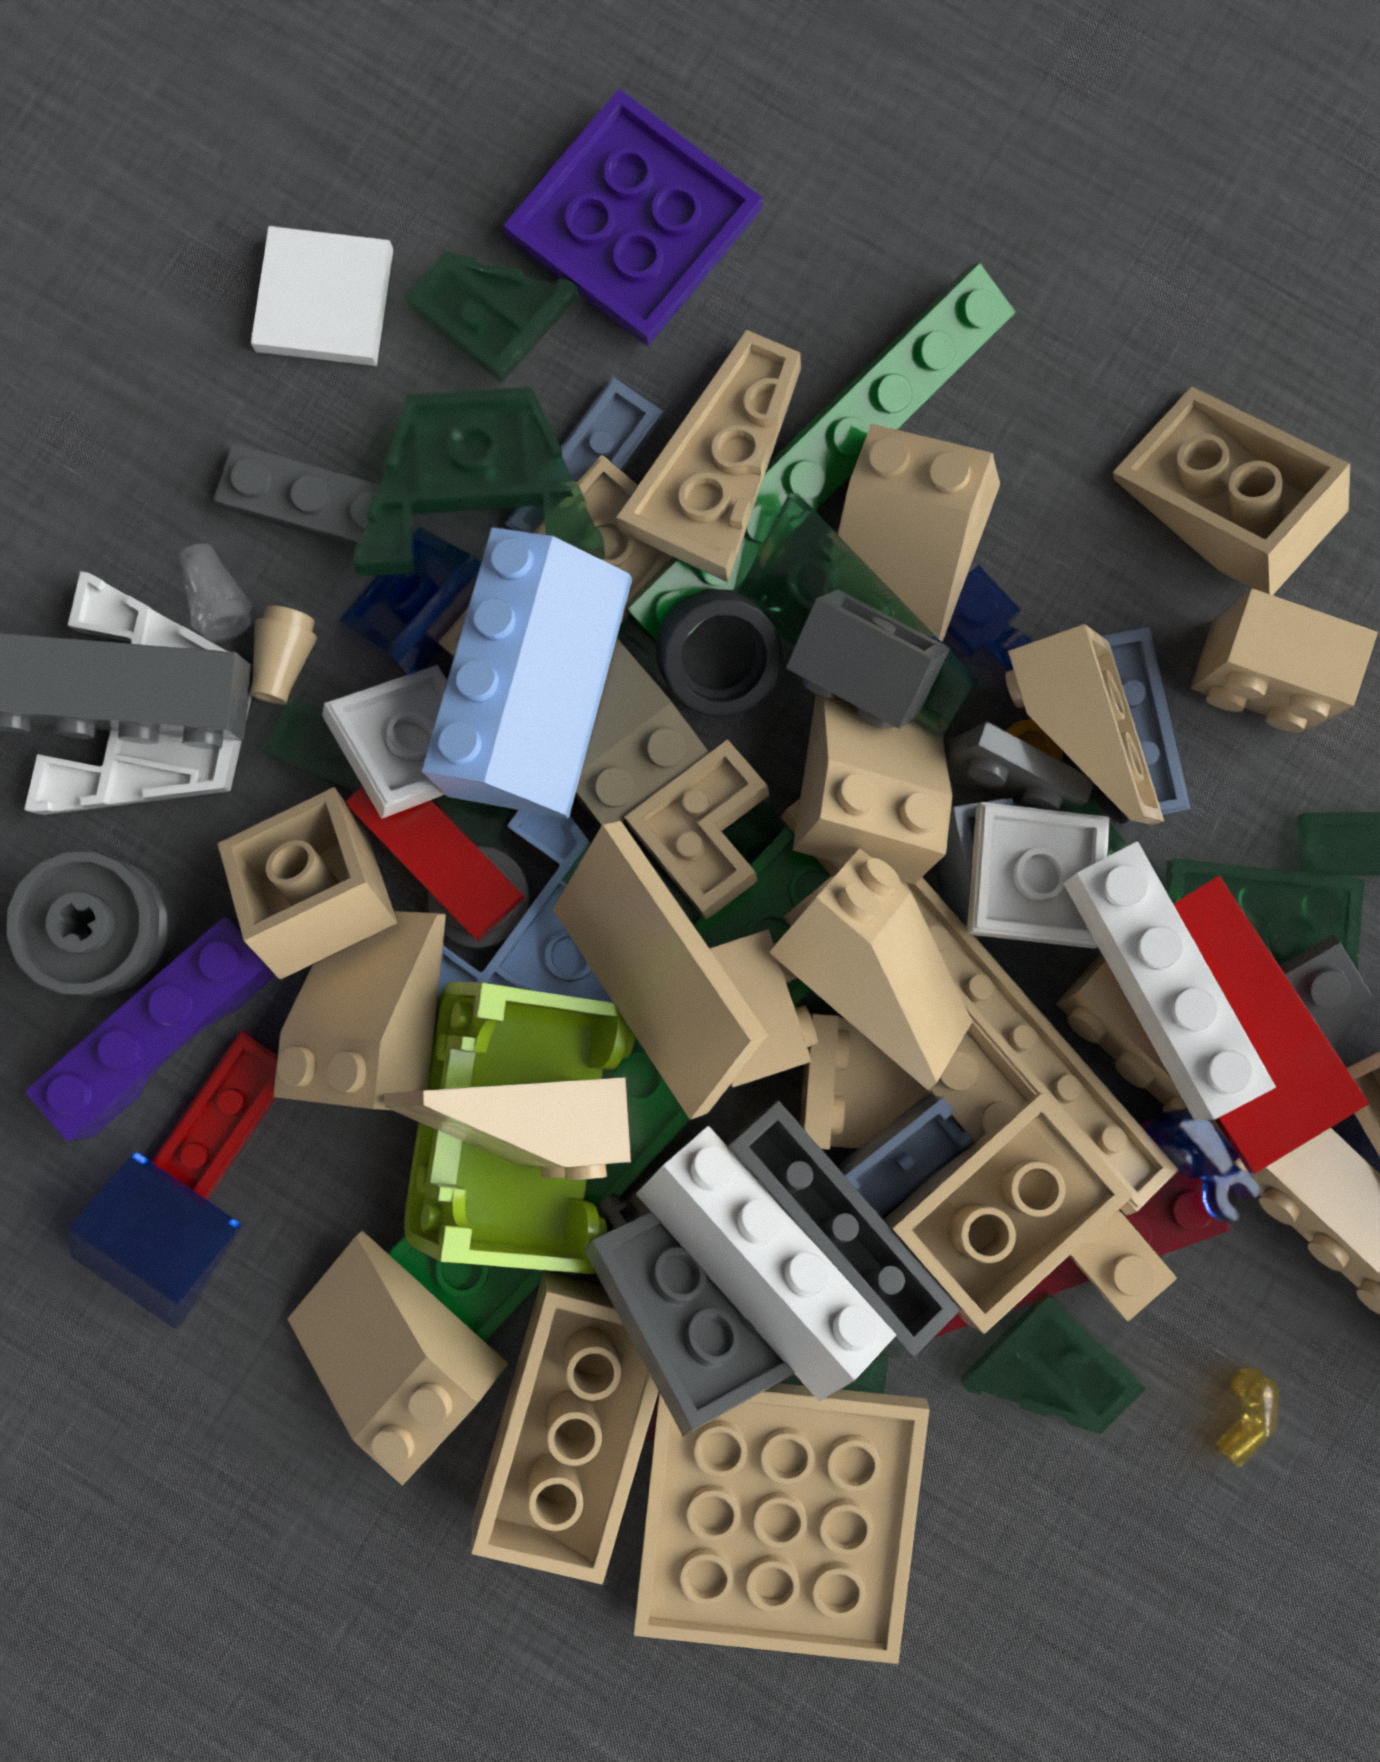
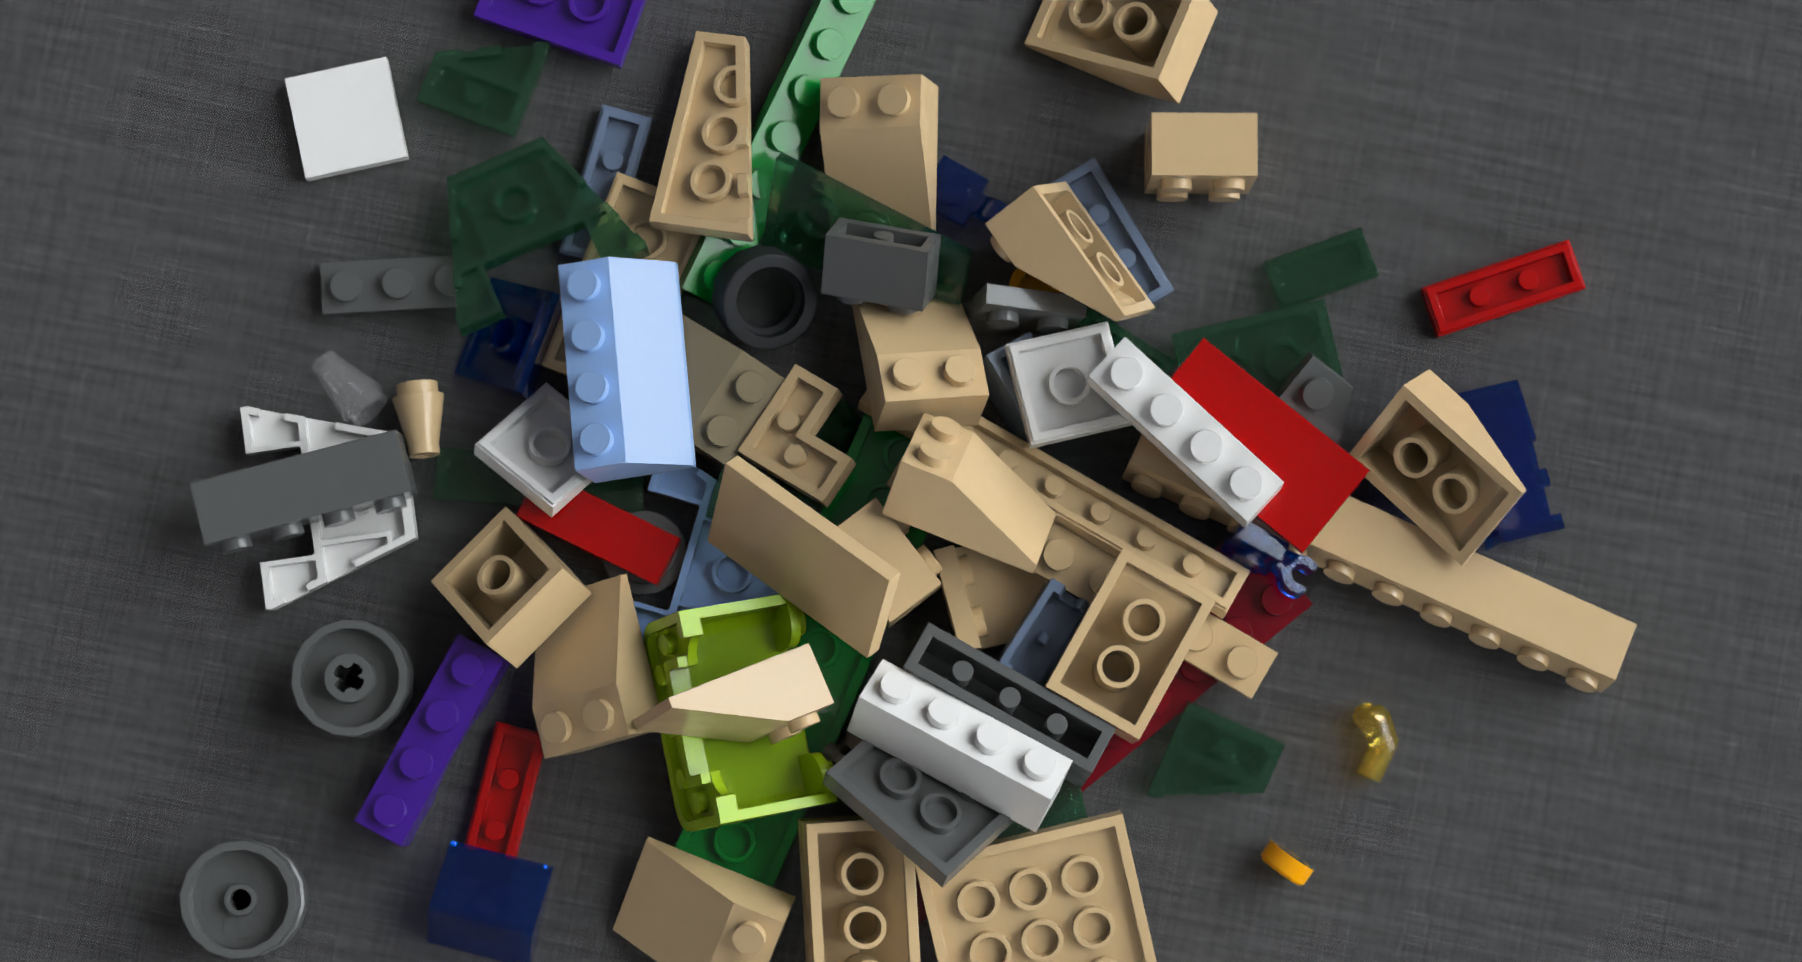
camera: 20 degrees left, 0 degrees up
(1098, 1527) = (1286, 863): none -> light orange tile

